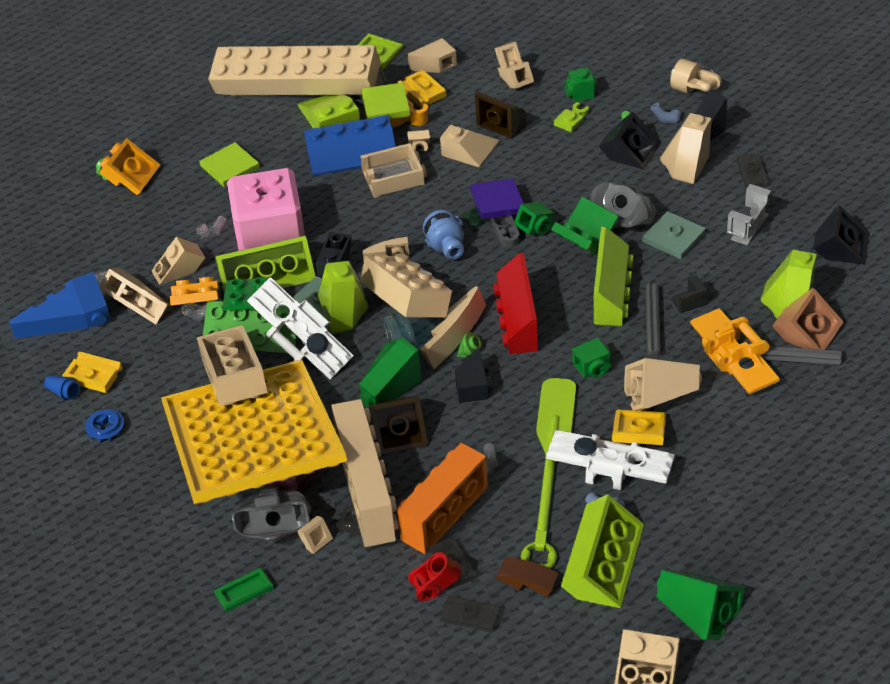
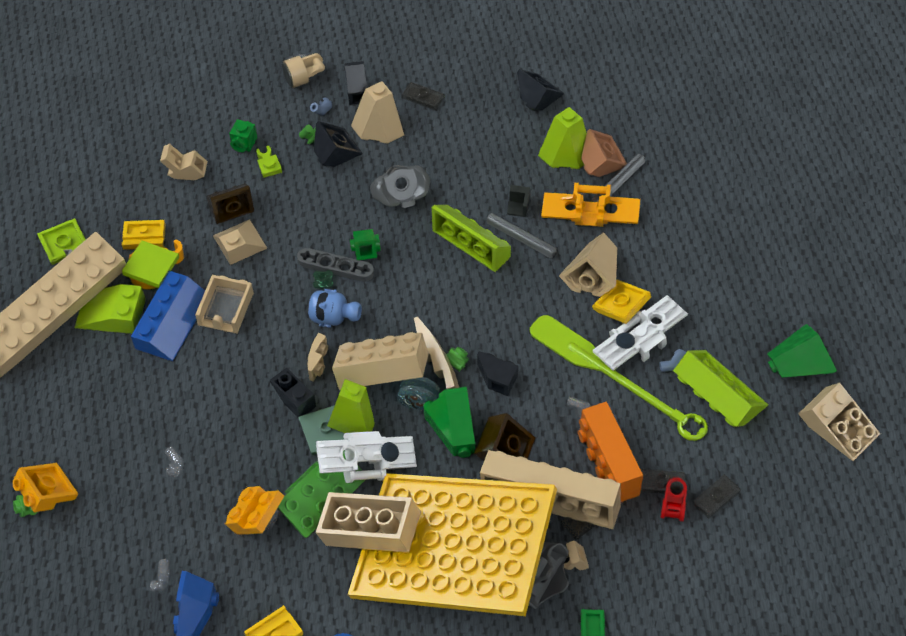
camera: 60 degrees left, 10 degrees up
(133, 294) = (212, 556): tan slope -> none
(178, 261) = (197, 507): tan slope -> none
(229, 163) = (104, 412): lime tile -> none
(239, 291) = (292, 472): green bracket -> none
(265, 208) = (205, 425): bright pink plate -> none
(284, 261) = (259, 446): lime slope -> none
(419, 138) = (204, 268): tan tile -> none
(433, 57) = (116, 206): tan slope -> none
(496, 198) = (323, 254): dark purple tile -> none
(516, 307) = (451, 303): red slope -> none
(522, 572) = (708, 441): reddish brown slope -> none
(585, 225) = (403, 217): green bracket -> none
(592, 358) = (535, 291): green brick -> none
(674, 235) = (448, 175): sand green plate -> none
(744, 226) = (468, 113): light grey piece -> none

